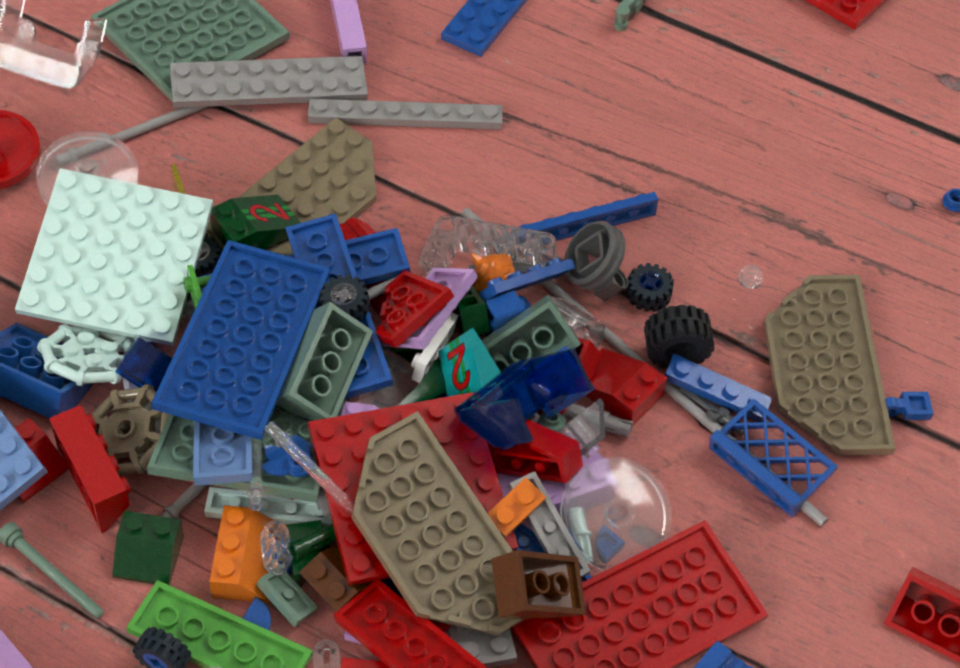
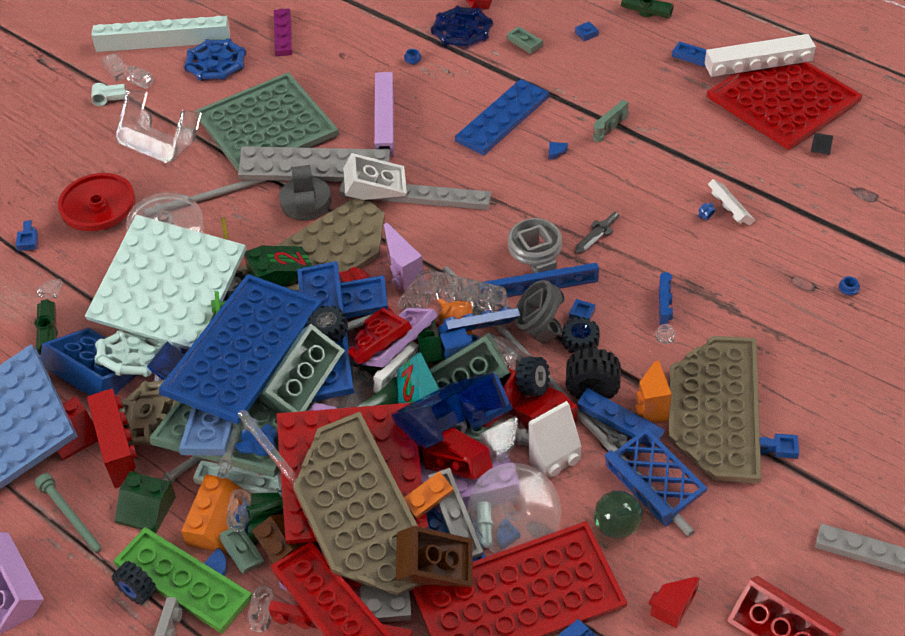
camera: 15 degrees right, 5 degrees down
(274, 120) = (298, 196): none -> dark grey piece
(352, 97) = (373, 178): none -> white slope
(411, 204) = (403, 259): none -> lavender slope
(572, 44) = (557, 149): none -> blue tile
(584, 189) = (526, 235): none -> light grey piece
(608, 345) = (532, 376): none -> black wheel
(642, 152) = (596, 233): none -> dark grey sword
(645, 253) = (582, 309): none -> blue plate
(649, 425) = (554, 441): none -> white slope
(740, 508) = (618, 514): none -> clear green piece
(743, 233) = (665, 298): none -> blue plate
(756, 357) = (653, 395): none -> orange slope
(771, 115) = (706, 211): none -> blue plate
(798, 103) = (730, 203): none -> white plate
(820, 607) = (673, 600): none -> red slope
(894, 19) = (822, 143): none -> black plate

